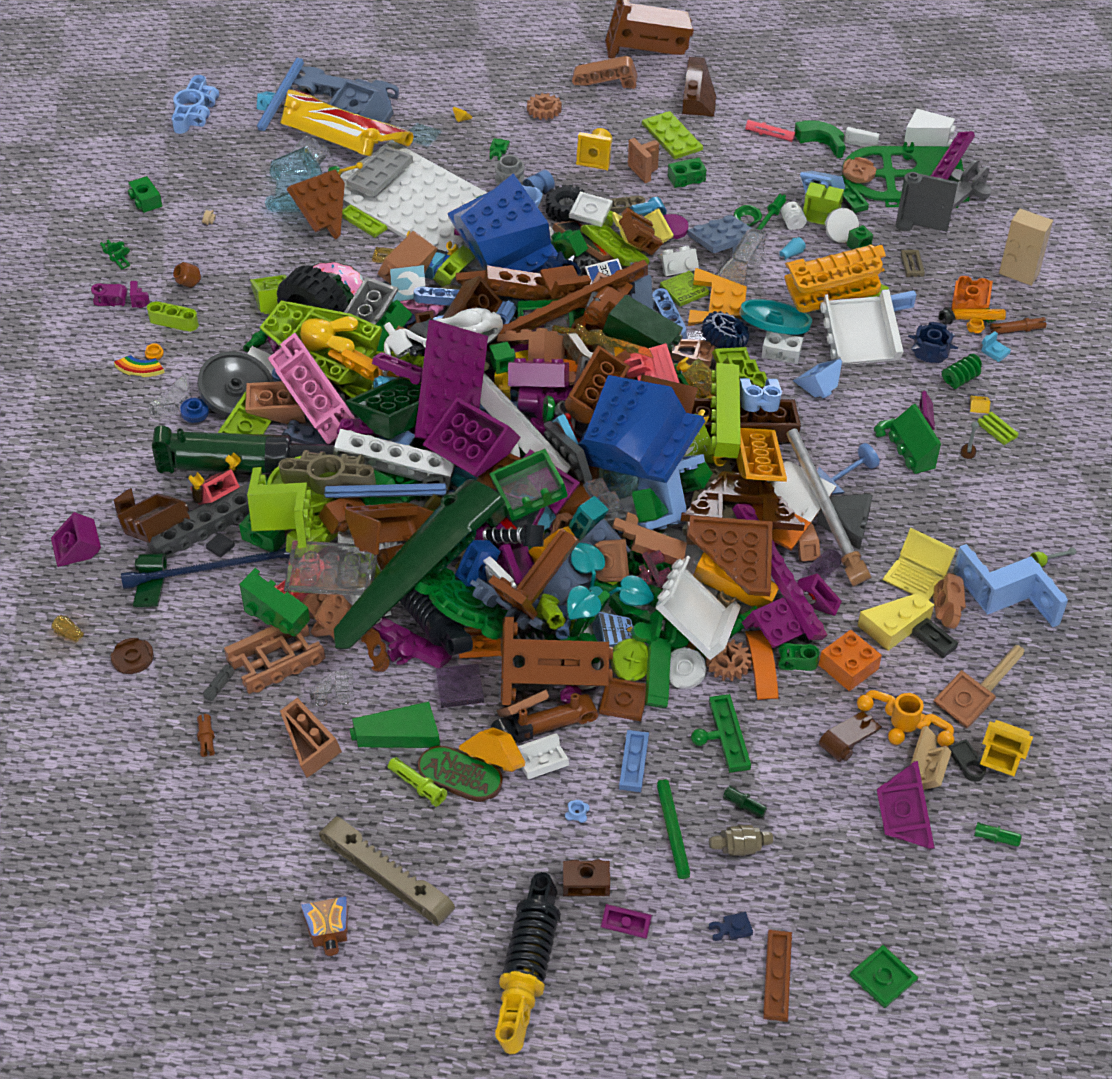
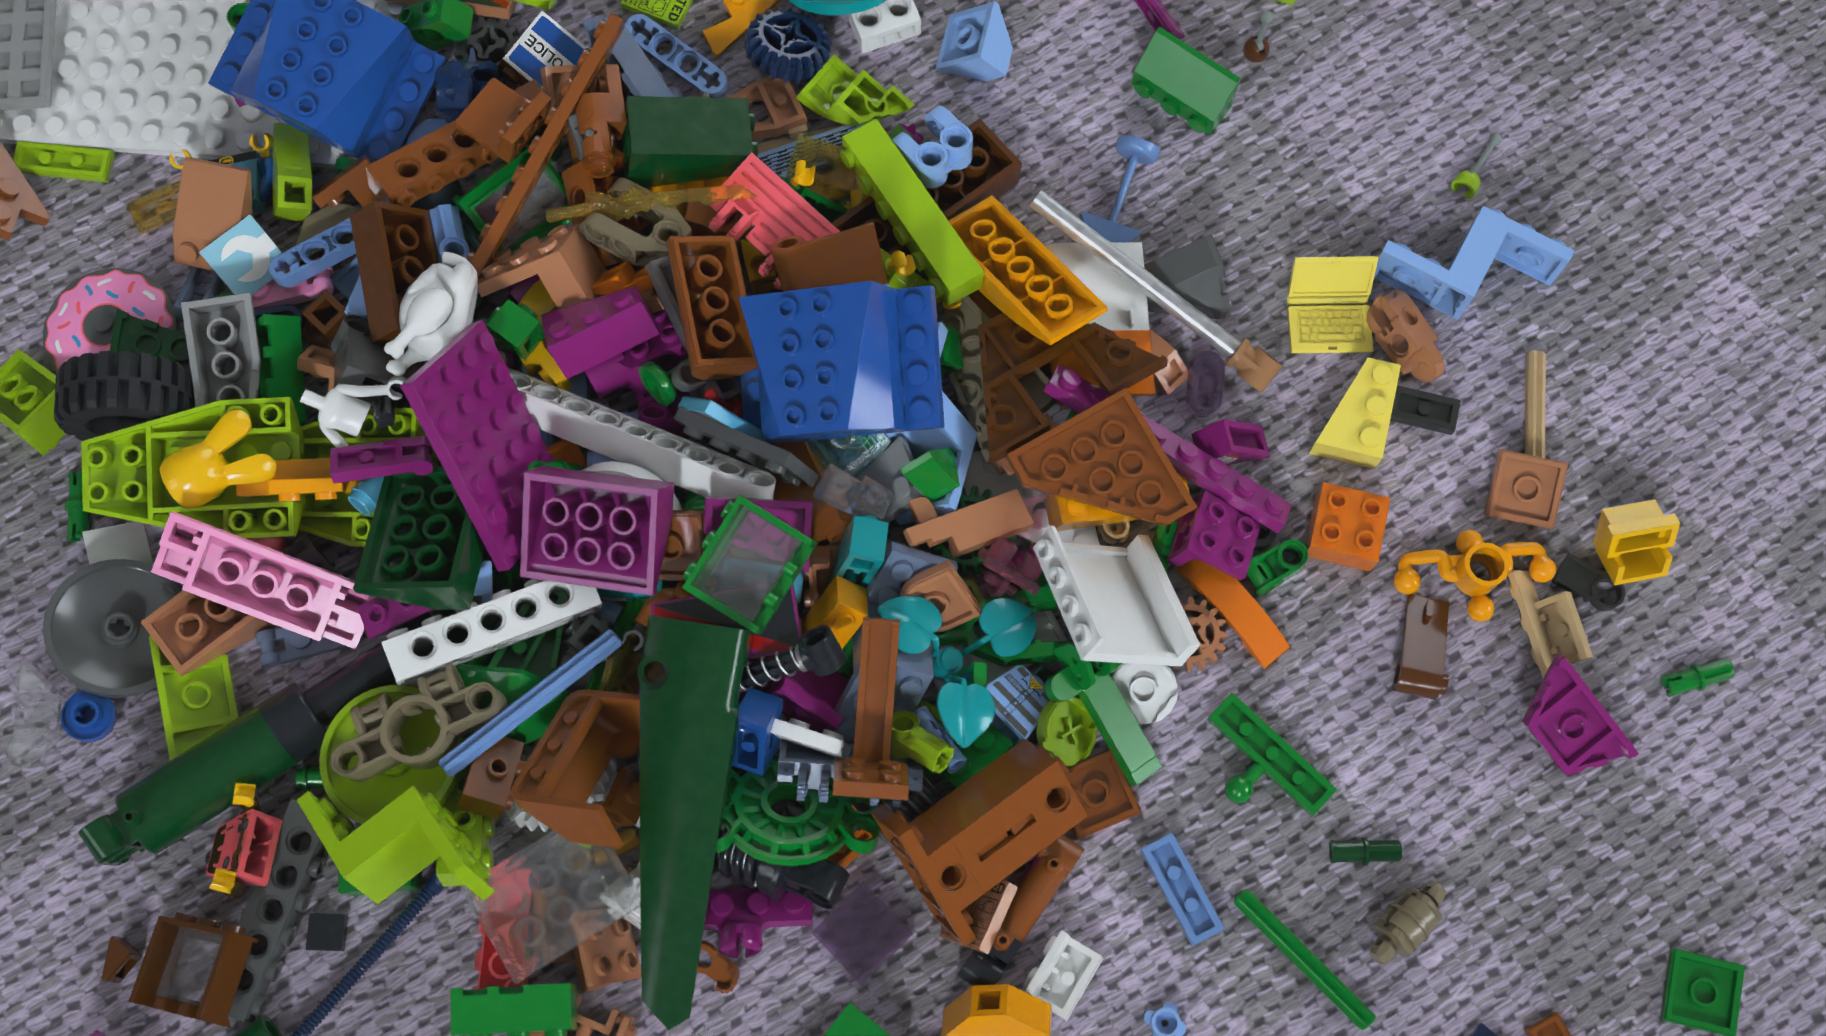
camera: 35 degrees left, 25 degrees up
(881, 426) = (1115, 80): green arm -> none

